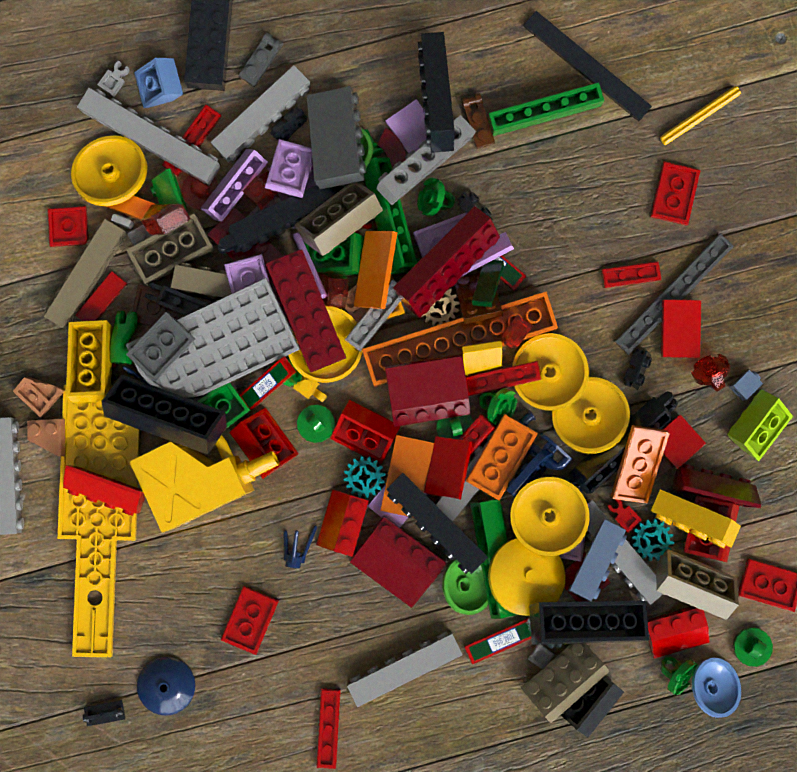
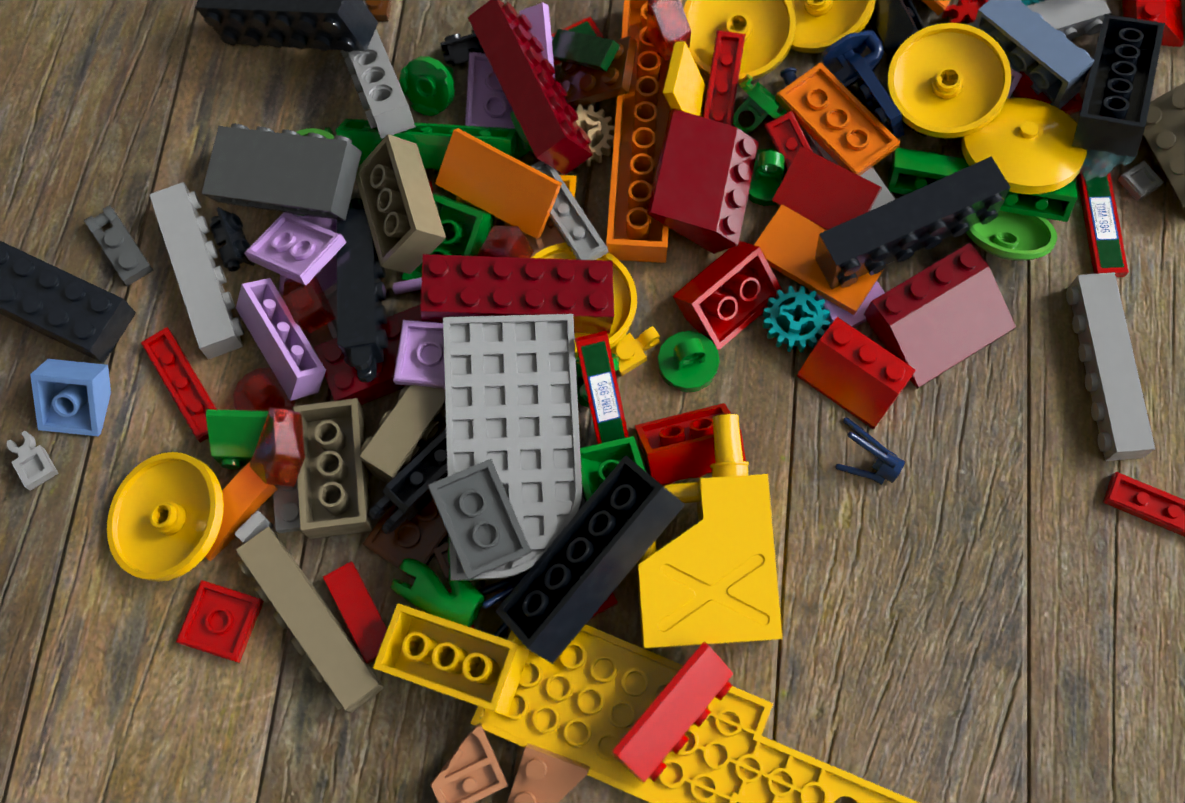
camera: 65 degrees left, 15 degrees down
(149, 136) = (148, 433): light grey brick -> none
(177, 678) = (1009, 750): dark blue dish -> none
(249, 620) = (962, 571): red tile -> none
(392, 147) = (333, 115): dark red tile -> none
(409, 126) = (319, 85): lavender tile -> none

